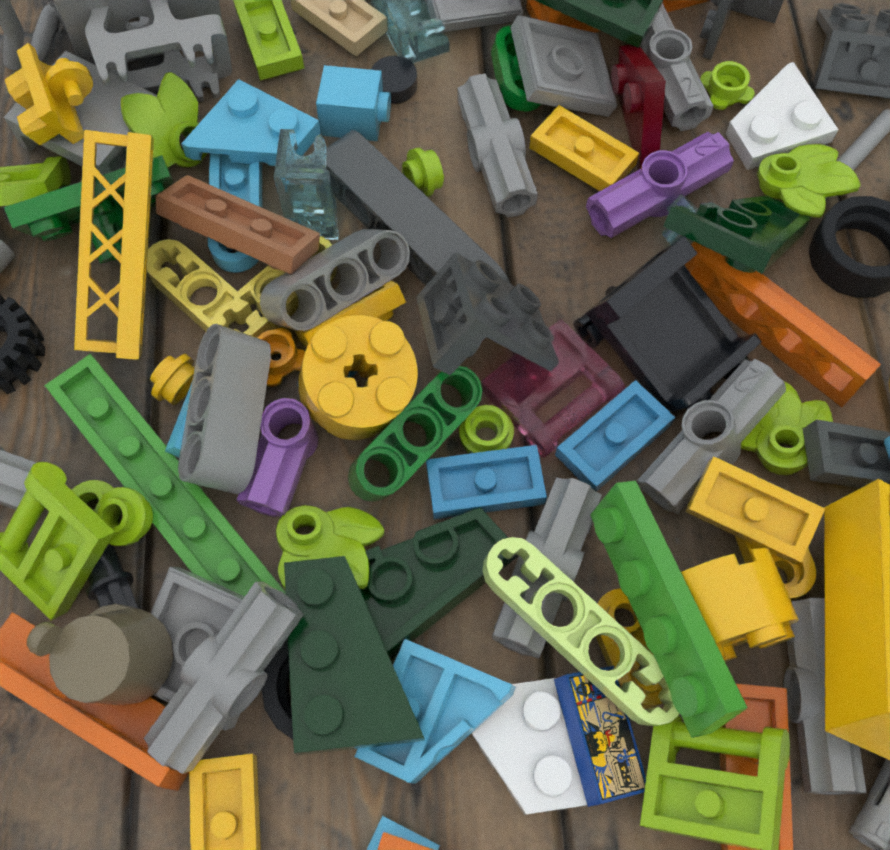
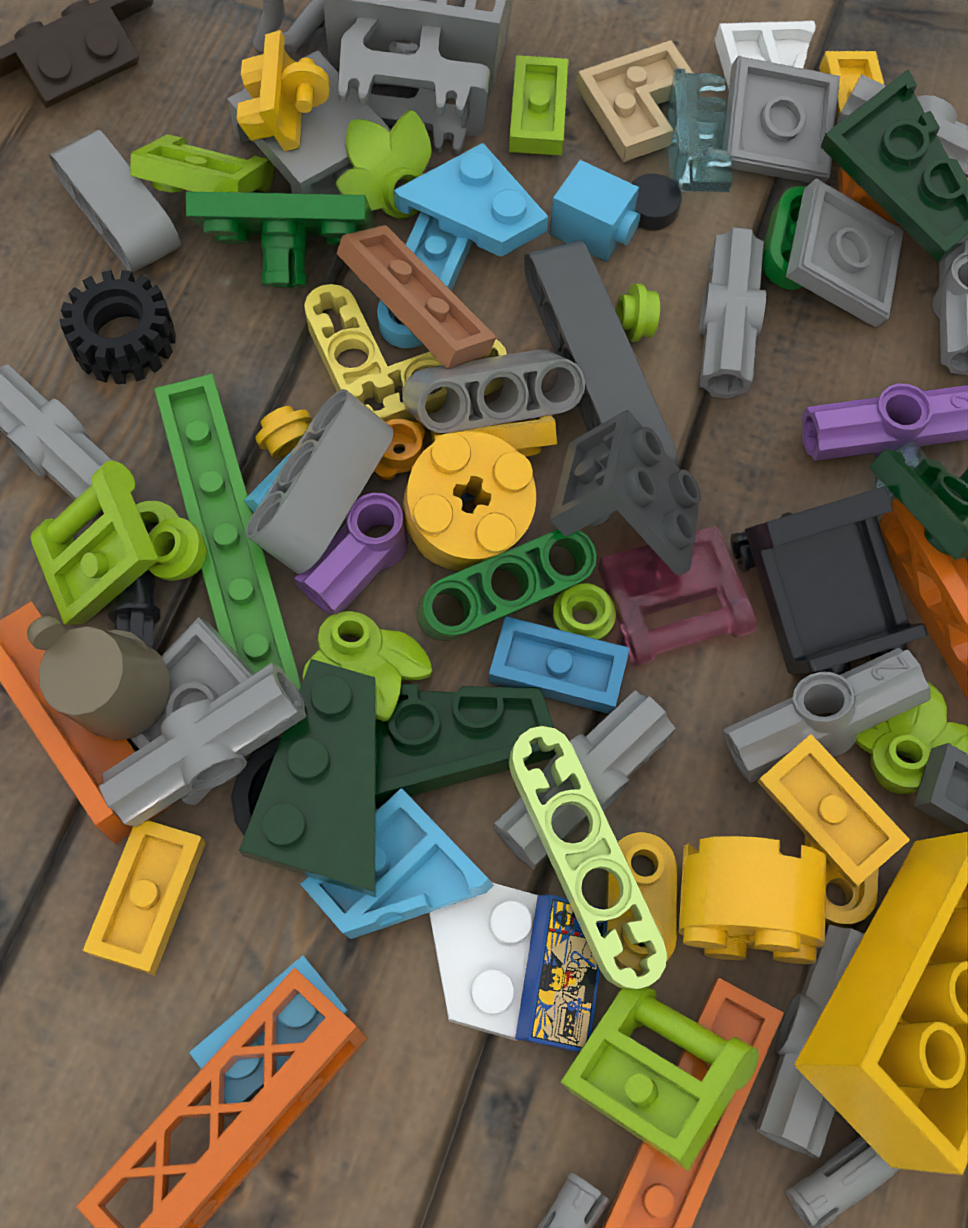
camera: 20 degrees right, 0 degrees up
(134, 243) = (299, 276): yellow fence -> none
(305, 186) = (501, 282): clear light blue hinge -> none
(583, 149) = (827, 352): yellow plate -> none
(614, 436) = (720, 673): dark azure plate -> none
(641, 99) = (916, 320): dark red wing -> none
(666, 611) = (682, 871): bright green plate -> none

